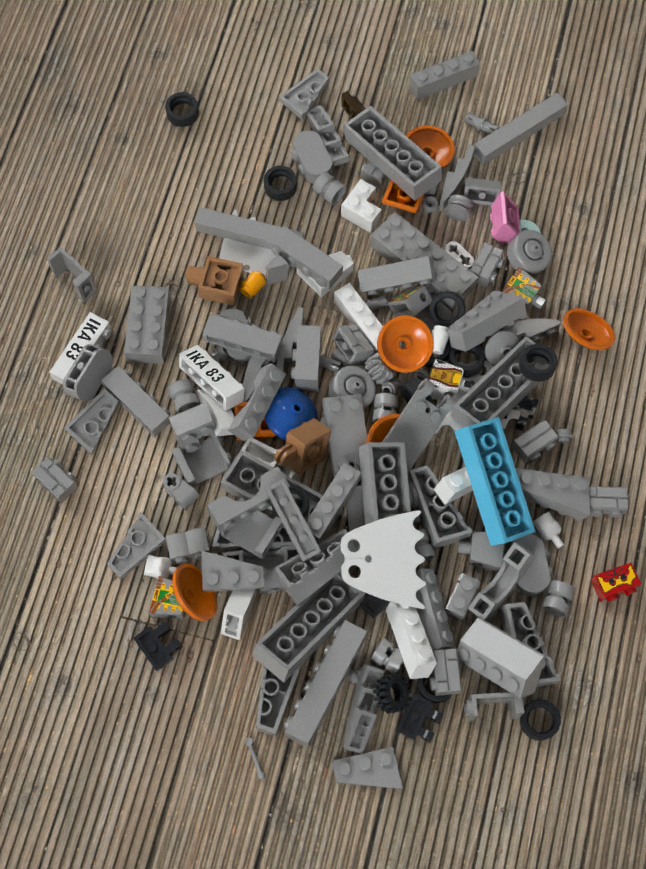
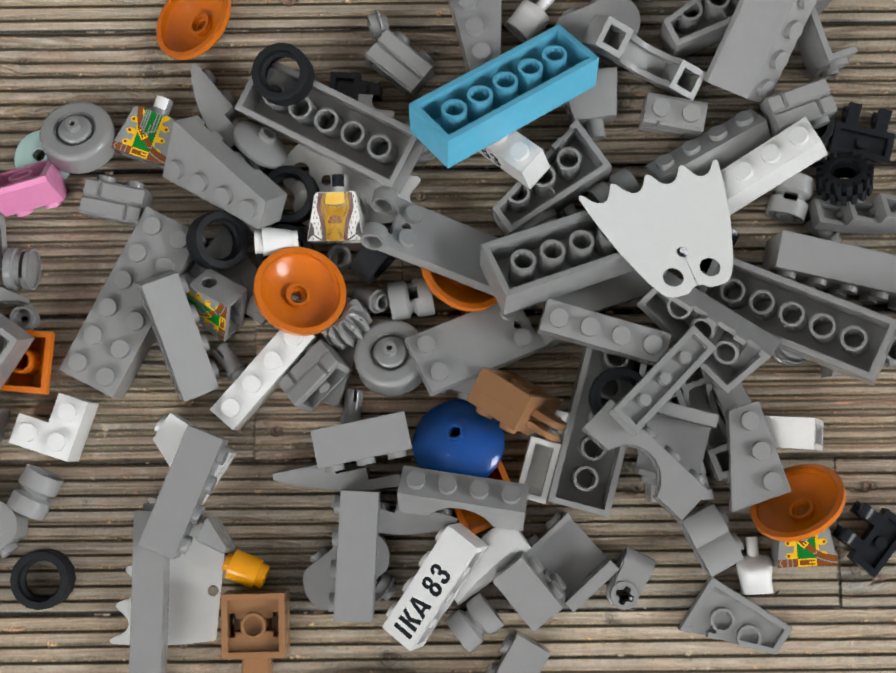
camera: 100 degrees left, 15 degrees up
(460, 255) = (103, 245): white beam -> none

